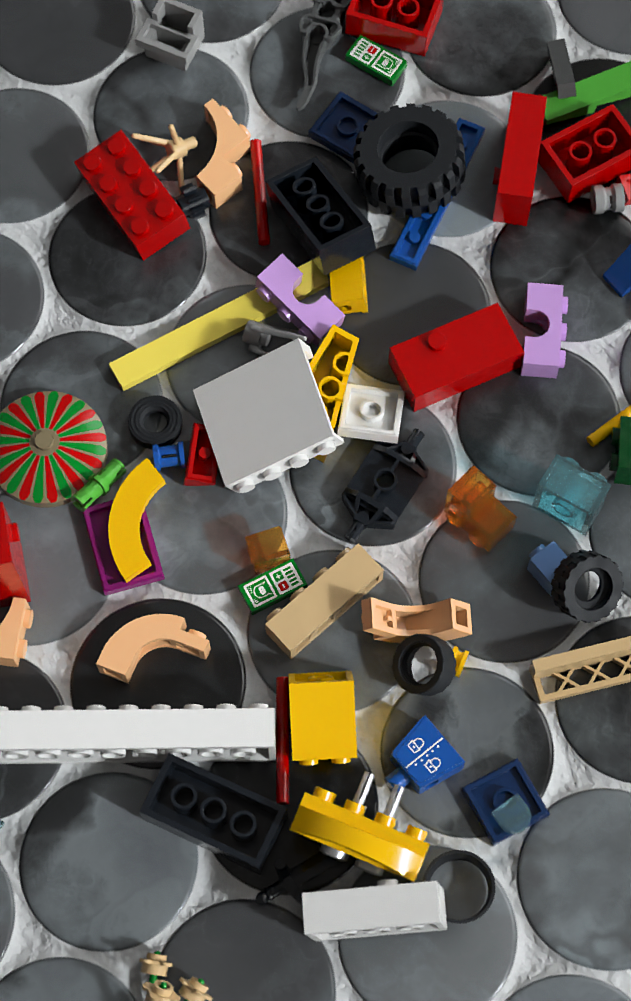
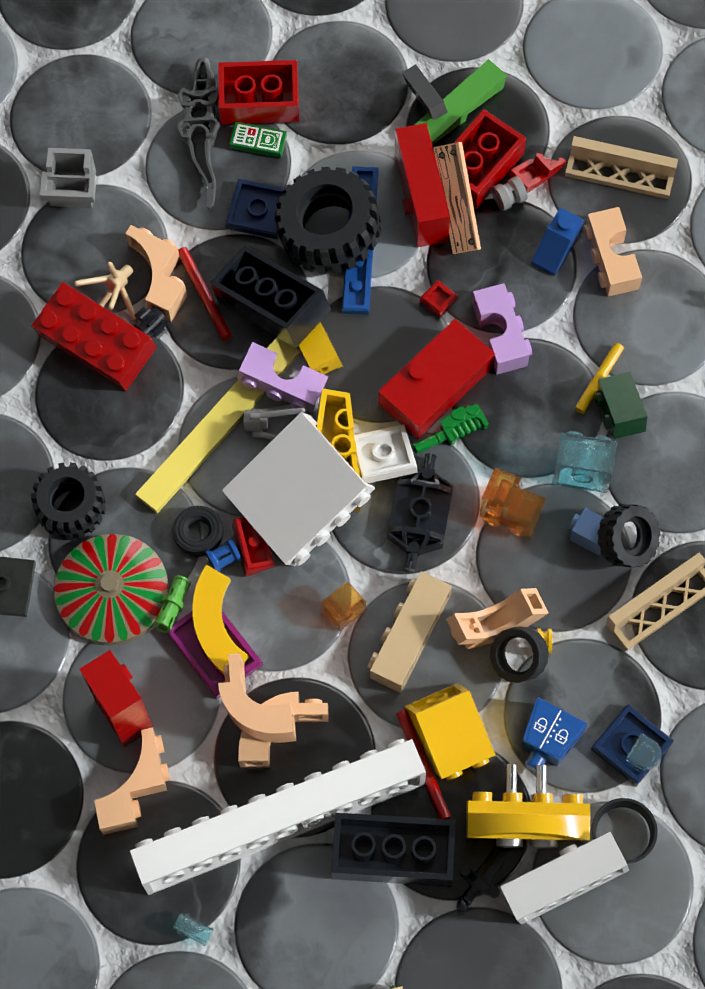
camera: 20 degrees left, 0 degrees up
(35, 325) = (61, 481): none -> black tyre
(134, 634) = (260, 721): none -> light nougat arch
(272, 586) = (360, 636): tile -> none
(459, 410) = (458, 424): none -> green piece
(492, 279) = (438, 298): none -> red tile
(549, 183) = (457, 191): none -> light nougat tile

